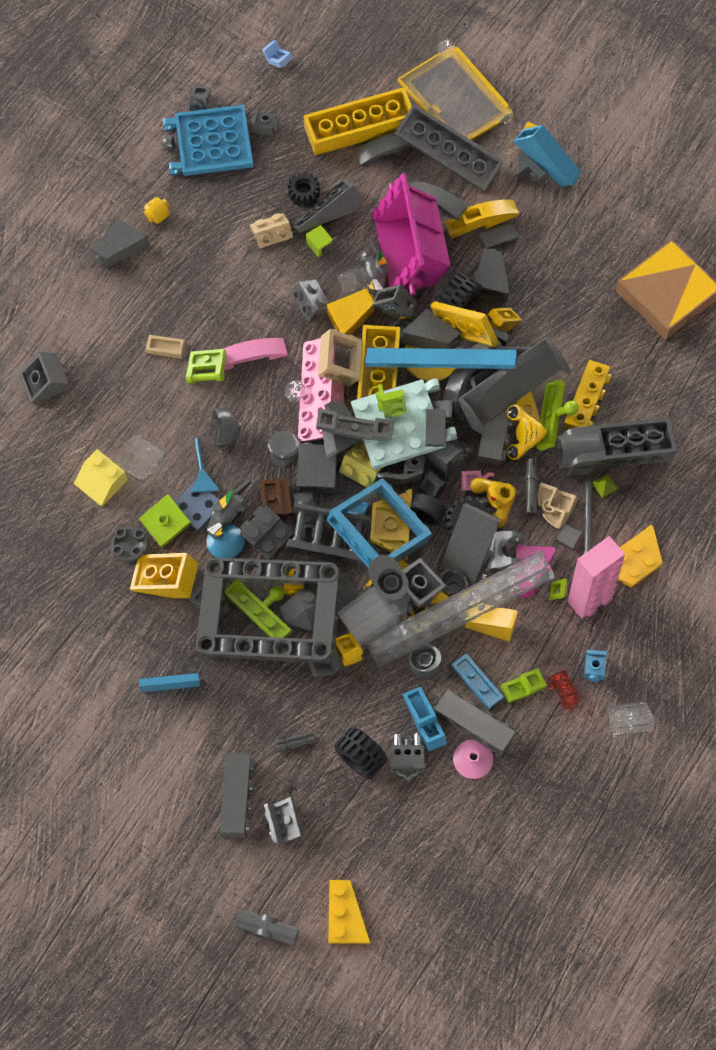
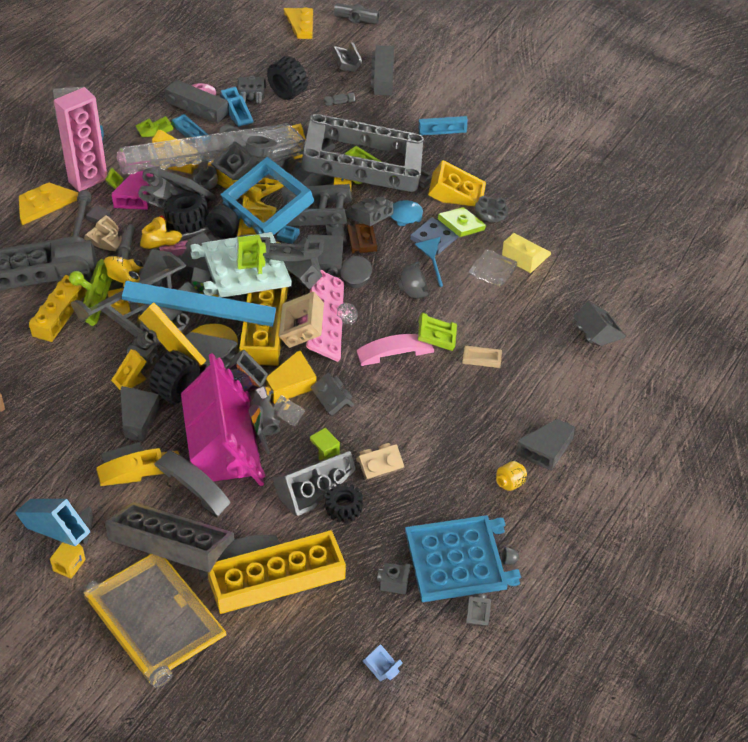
camera: 175 degrees right, 20 degrees down
(226, 510) = (405, 226): dark grey animal -> none
(435, 427) = (209, 246): dark grey tile -> none
(564, 688) = (121, 124): clear red leg -> none

